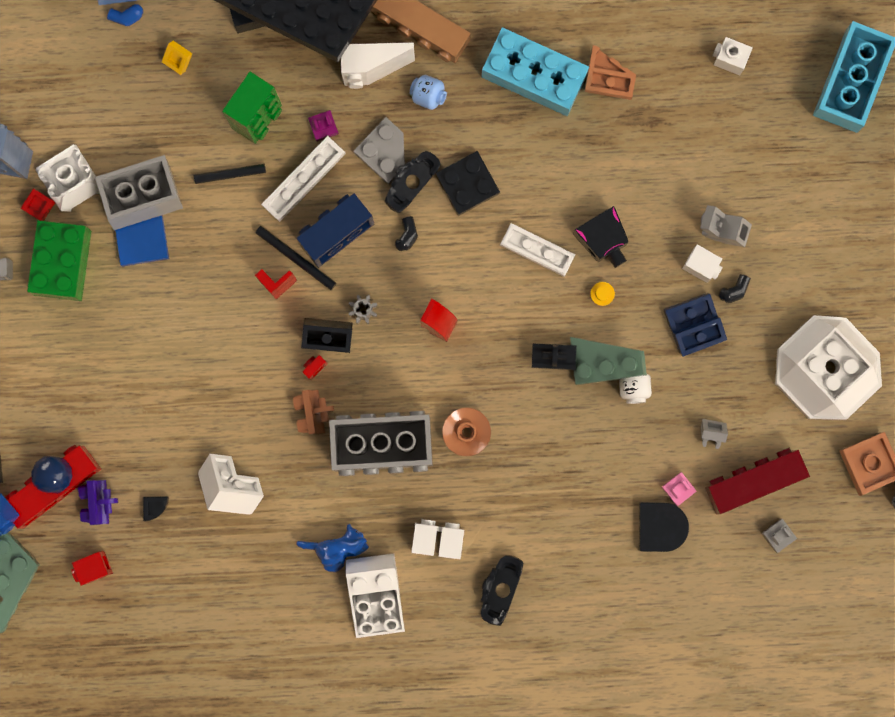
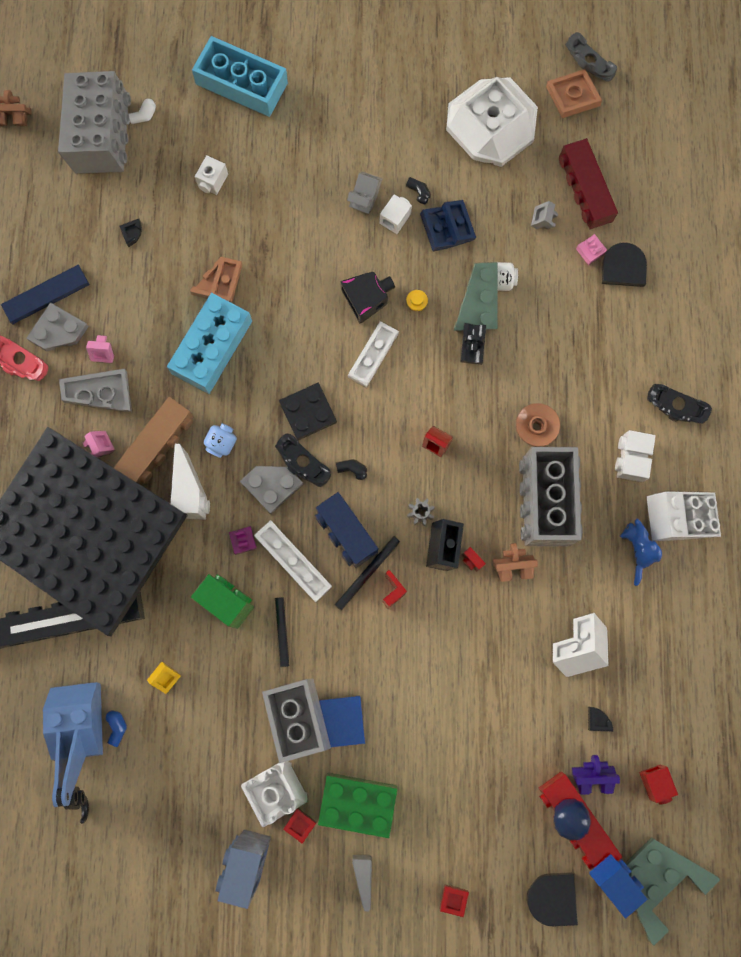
camera: 90 degrees left, 5 degrees down
(779, 535) = (632, 171): light grey tile -> none

